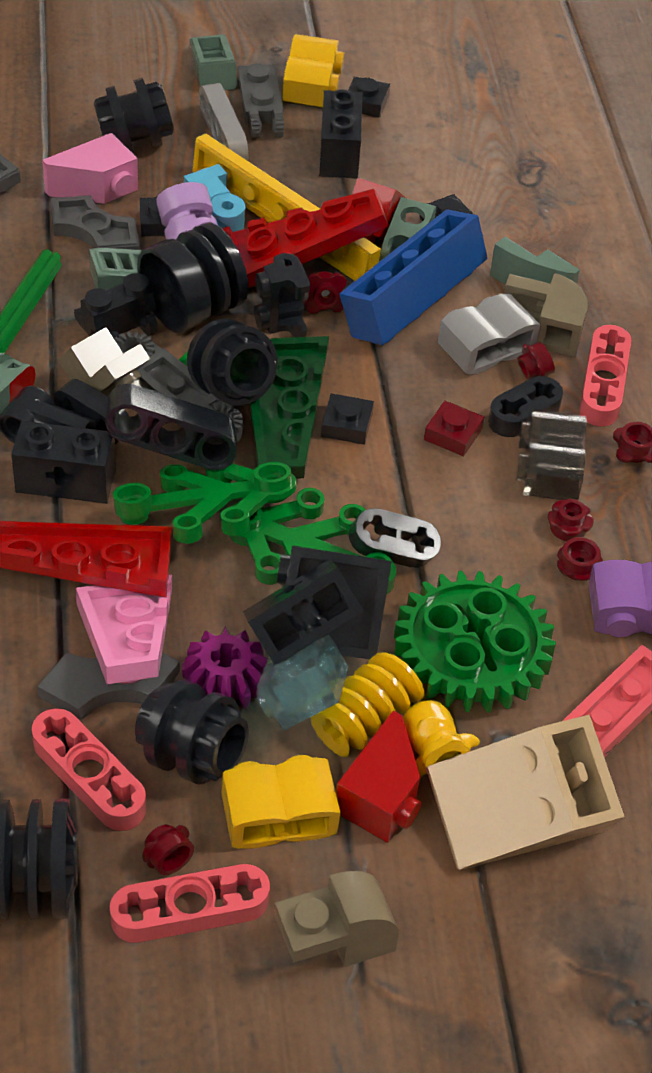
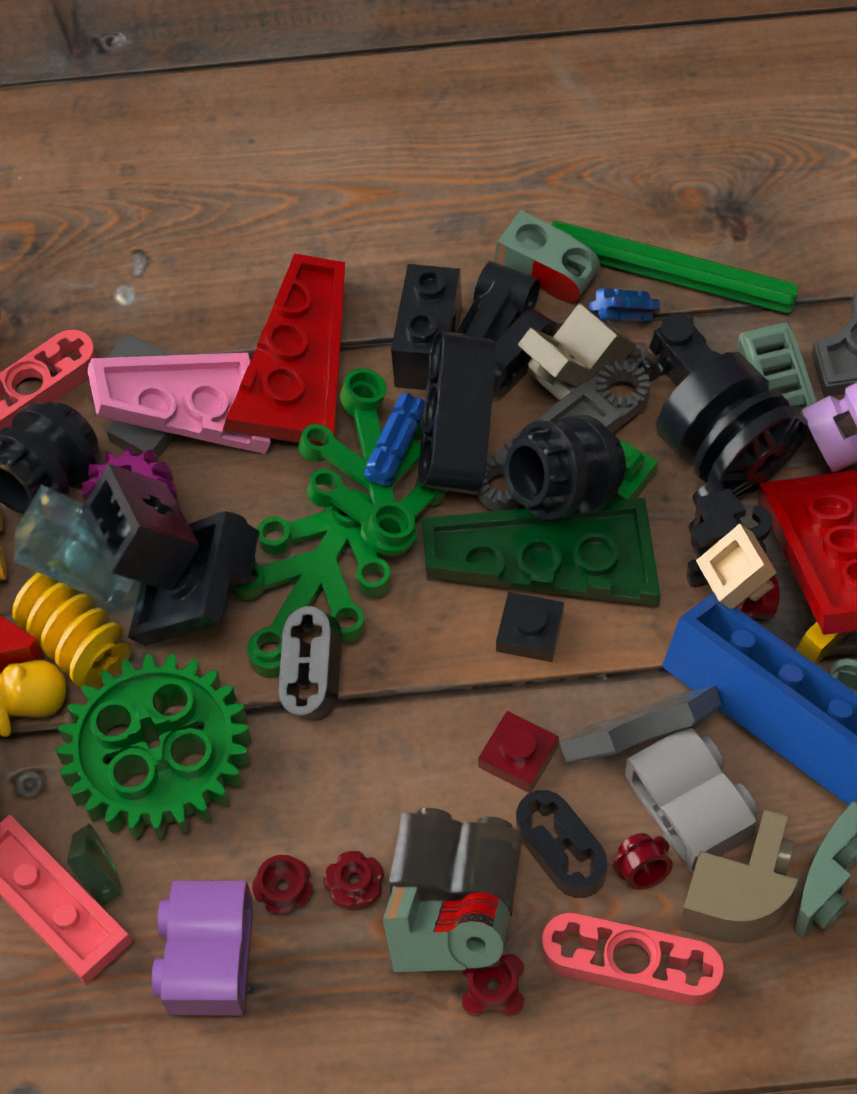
camera: 100 degrees right, 10 degrees up
(63, 334) = (624, 305): none -> blue axle
(188, 474) = (394, 440): none -> blue axle
(328, 269) = (737, 568): none -> tan tile
(432, 338) = (641, 725): none -> dark grey tile
(587, 674) = (93, 865): none -> clear green tile
(613, 453) = (444, 932): none -> sand green leg

